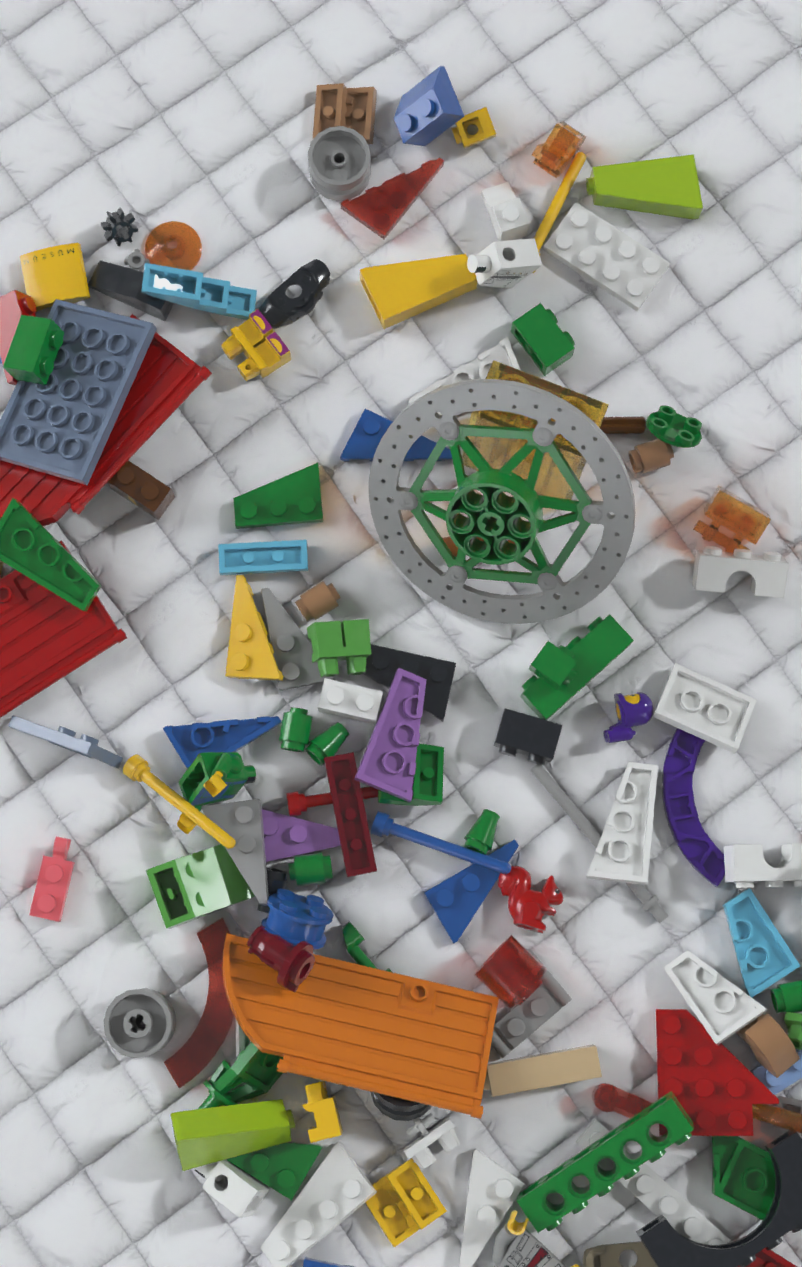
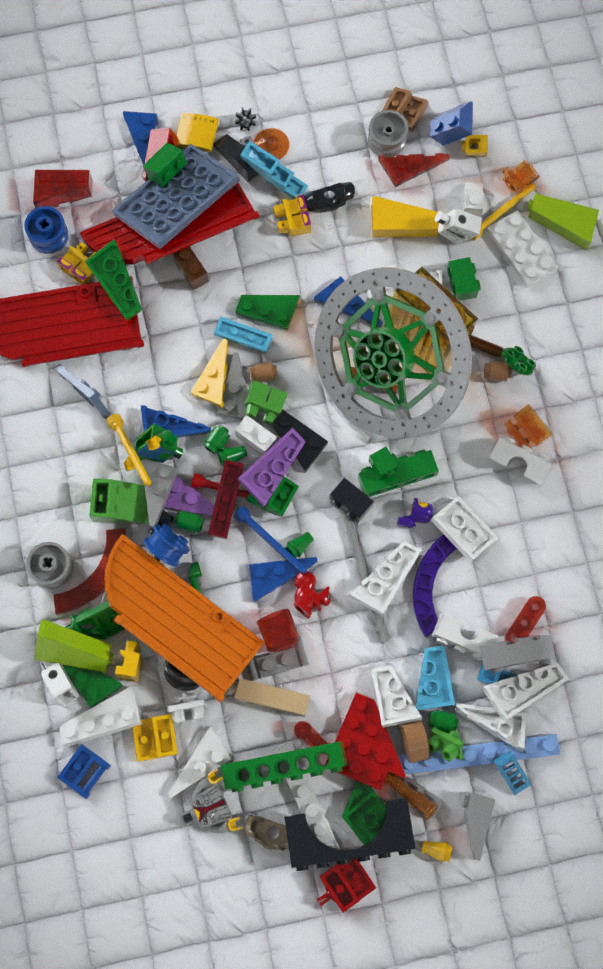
camera: 25 degrees right, 5 degrees down
(53, 882) = (38, 466): coral plate -> none
(290, 961) = (151, 563): dark red piece -> none

